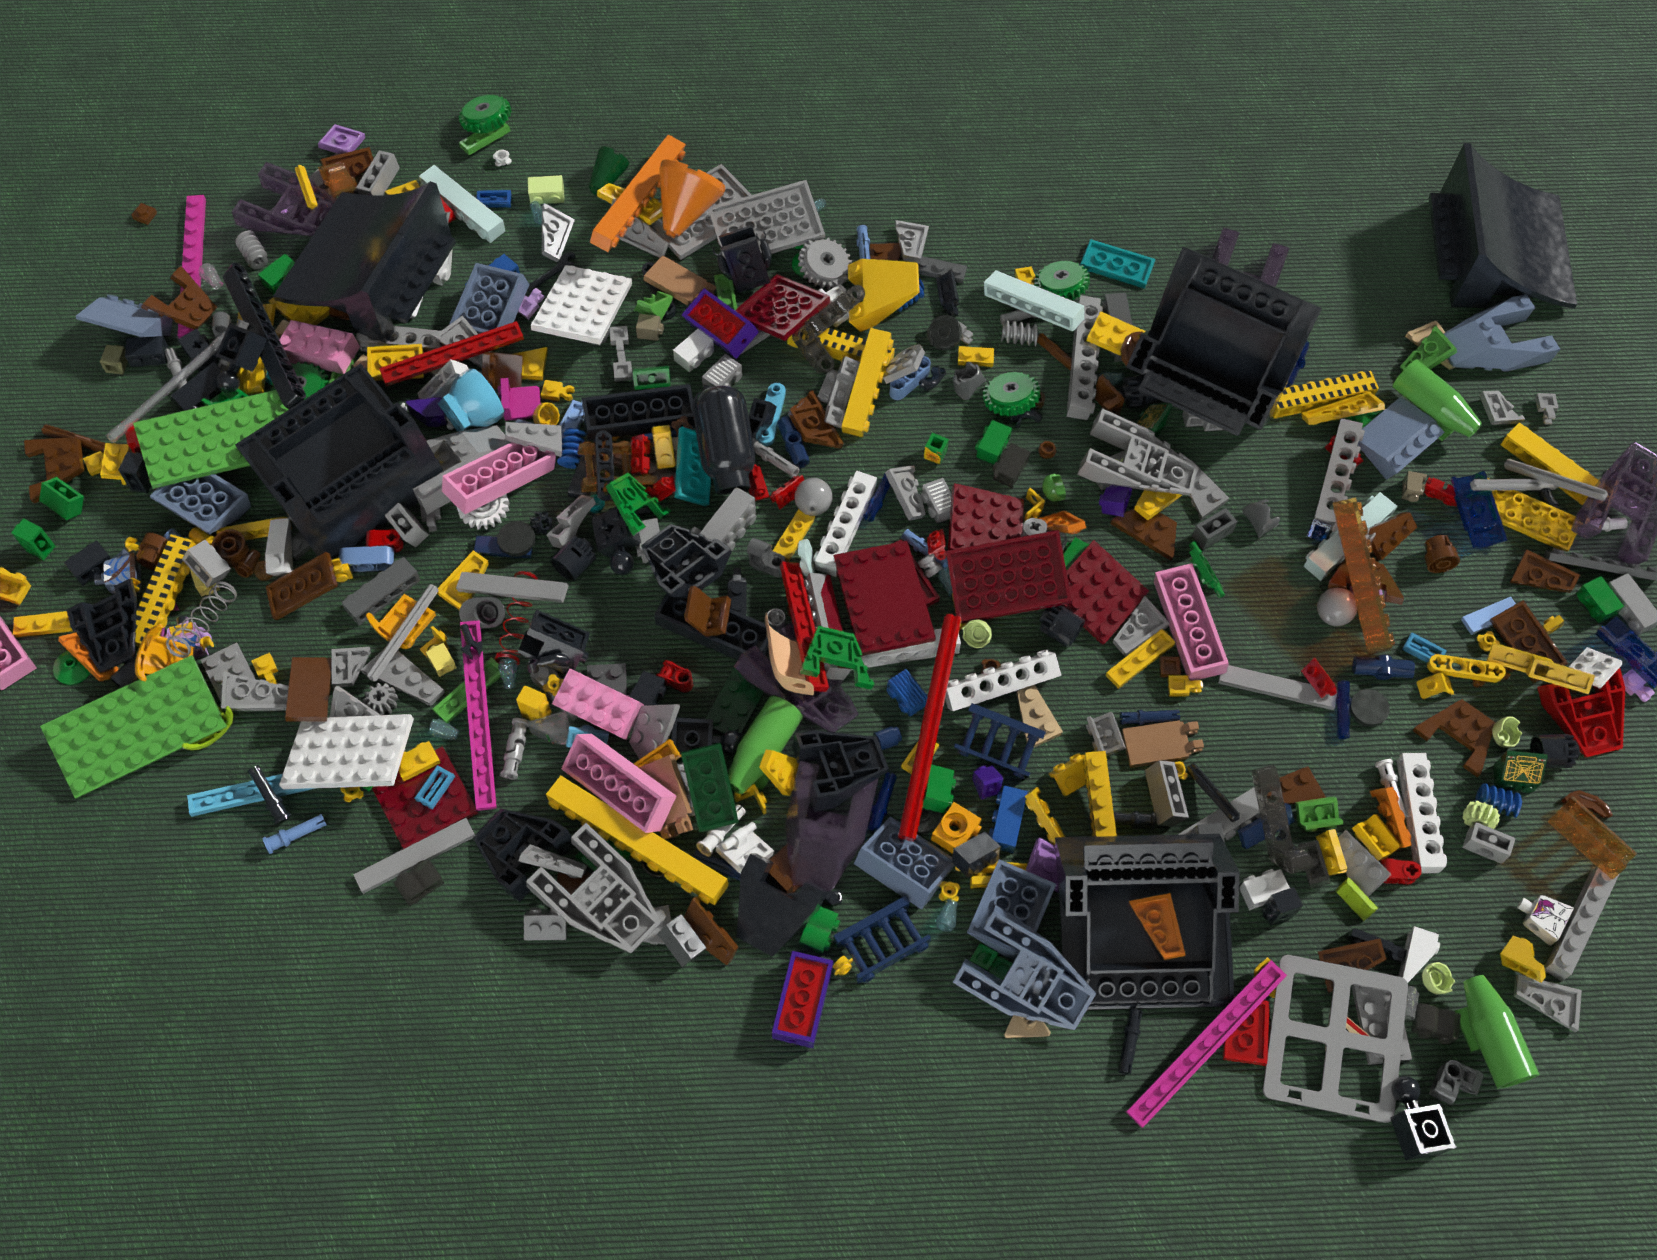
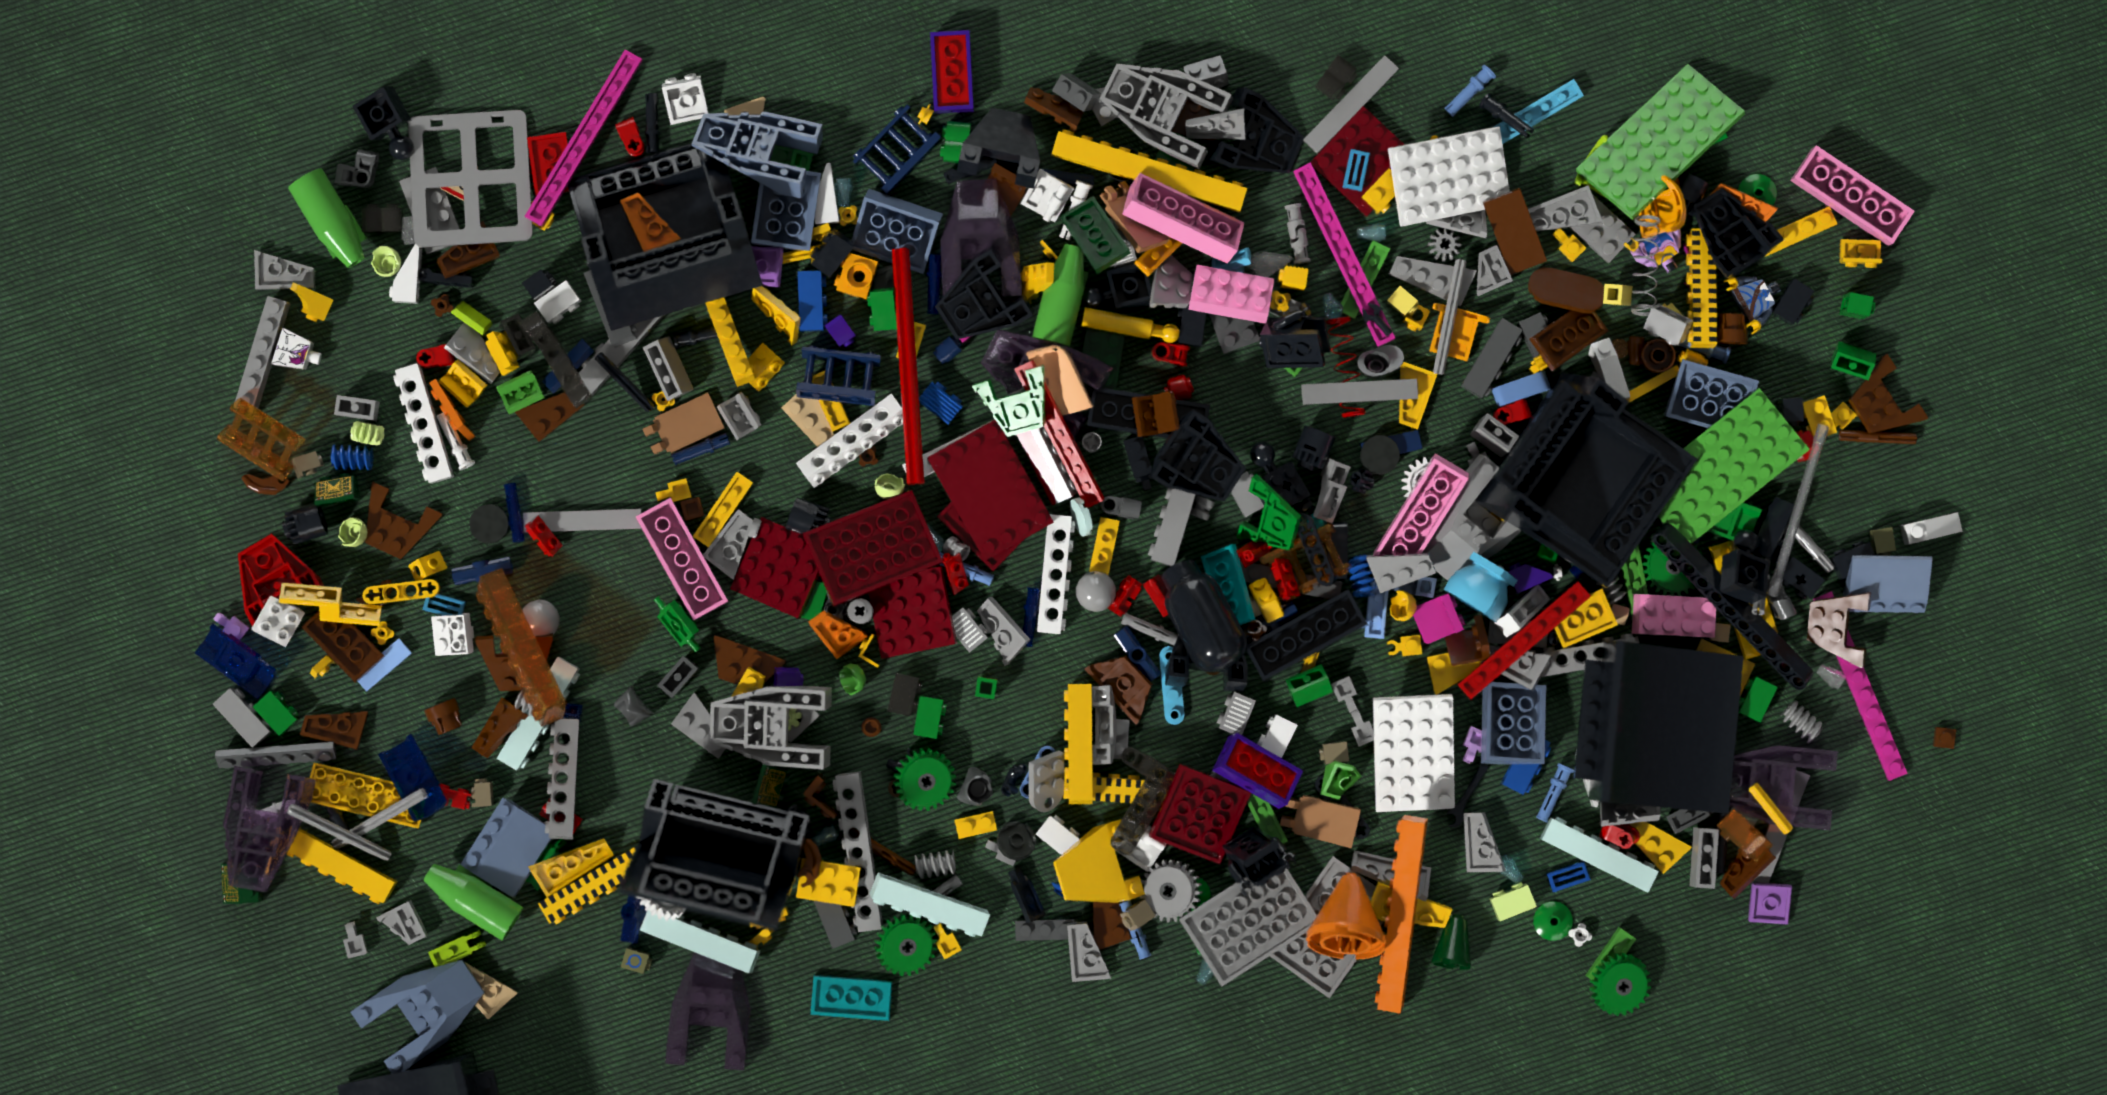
camera: 170 degrees right, 25 degrees up
(72, 357) = (1931, 528): none -> white slope
(241, 609) = (1617, 294): none -> light yellow brick
(285, 627) = (1566, 290): none -> reddish brown tile
(330, 603) = (1531, 327): none -> dark grey brick
(472, 258) = (1557, 784): none -> medium blue pin
(517, 174) = (1544, 915): none -> green dish
(678, 643) = (1181, 387): none -> red head
(706, 706) = (1128, 325): none -> yellow piece
(859, 249) = (1137, 915): none -> dark tan brick
(907, 327) = (1057, 835): none -> white brick
(968, 902) = (826, 203): none -> white slope
(1011, 708) = (833, 410): none -> yellow plate
(1089, 1055) = (684, 98): none -> white plate
(1113, 633) = (754, 528): none -> light grey tile
(1156, 1036) = (630, 134): none -> red piece
(1380, 924) = (439, 311): none -> reddish brown plate
(1420, 619) = (452, 634): none -> white plate
(1432, 350) = (490, 966): bright green wing -> none
(1461, 377) = (455, 950): none -> lime hinge
(1545, 806) = (307, 464): none -> dark tan brick

